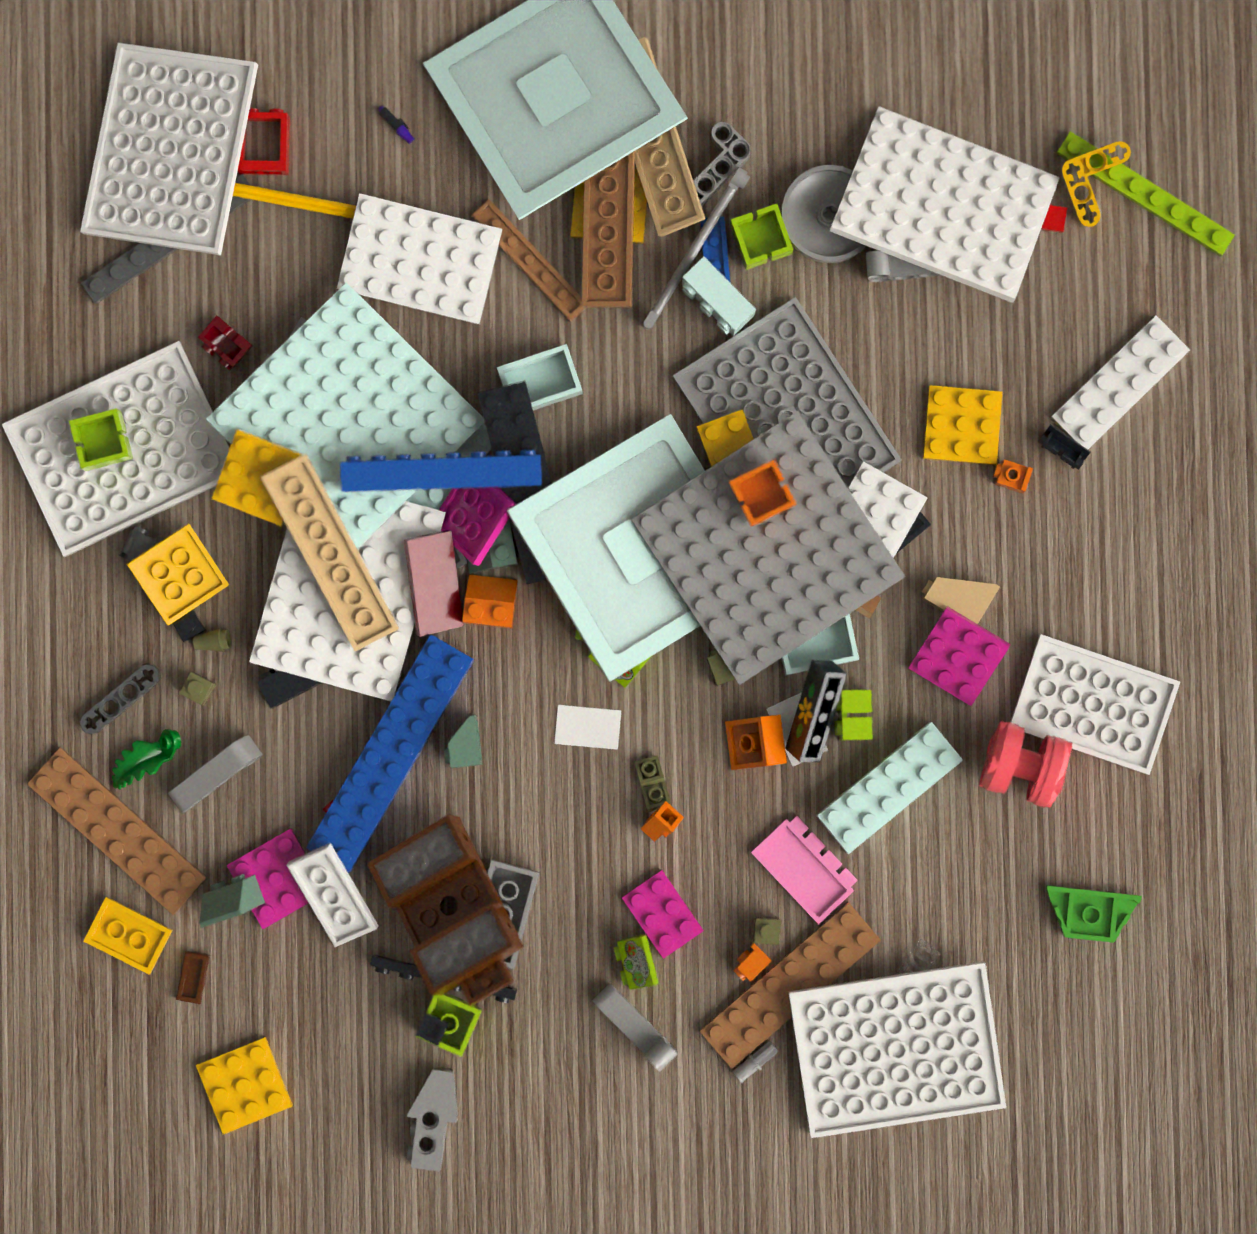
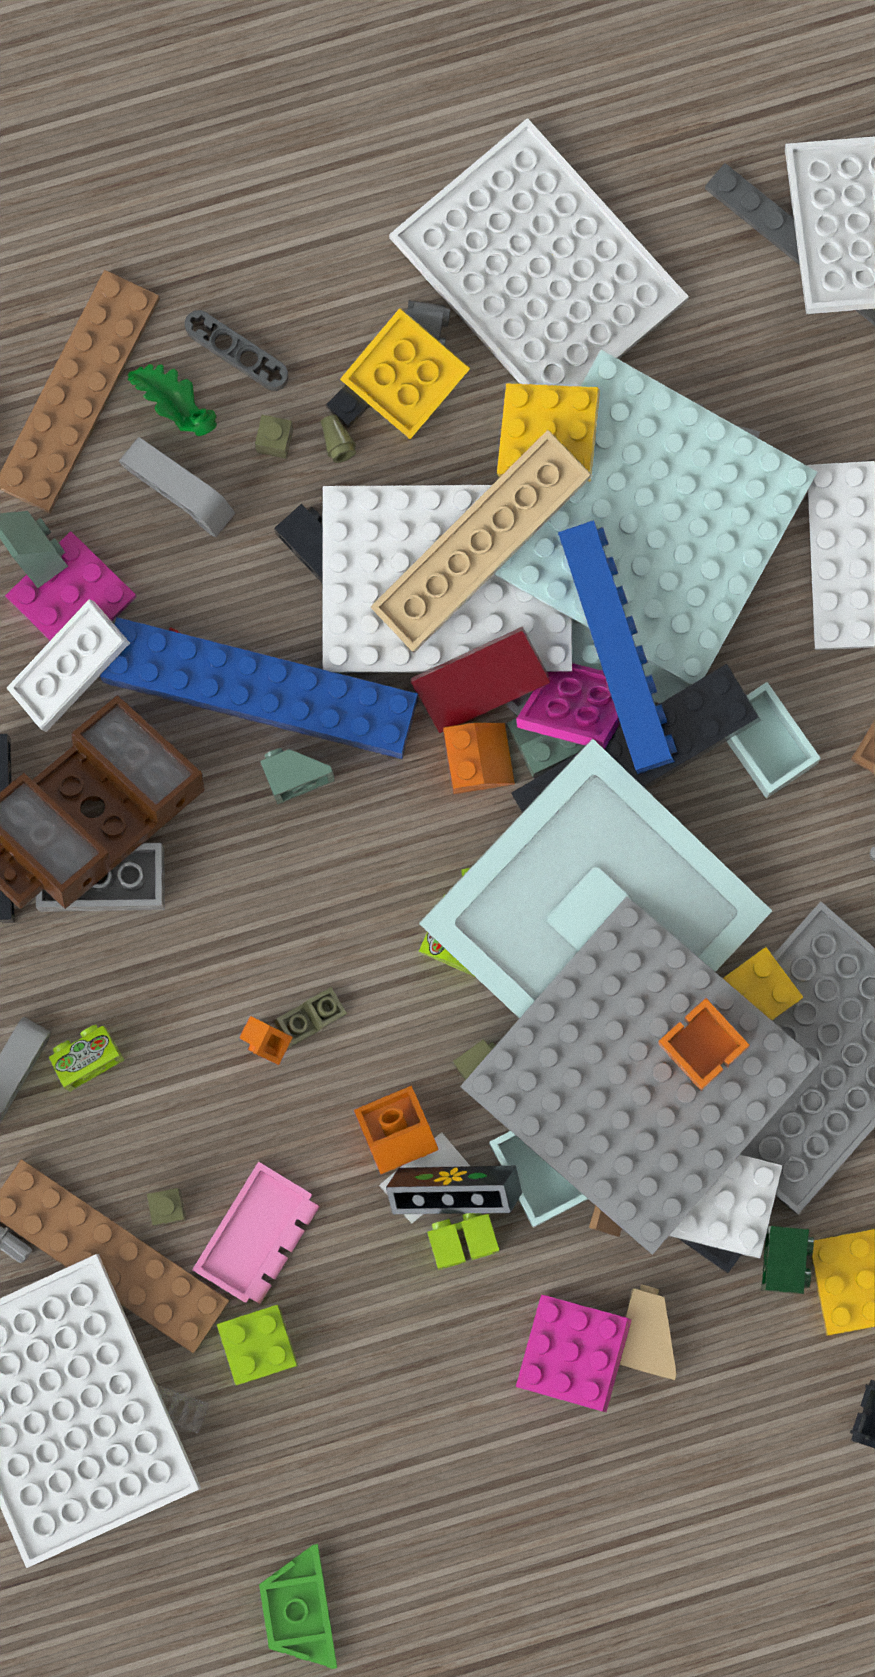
camera: 80 degrees right, 5 degrees down
(101, 439) = (542, 238): lime piece -> none
(225, 342) = (702, 351): dark red cylinder -> none
(588, 727) = (358, 919): white sticker -> none
(662, 914) = (153, 1074): dark pink plate -> none
(751, 963) = (121, 1199): orange brick -> none
(888, 890) = (257, 1345): none -> lime brick
(889, 787) = (385, 1310): light aqua brick -> none
(935, 479) = (786, 1260): none -> dark green brick
(1018, 484) = (810, 1368): orange brick -> none
(1042, 769) = (460, 1491): coral piece -> none
(1095, 703) = (561, 1542): white plate -> none

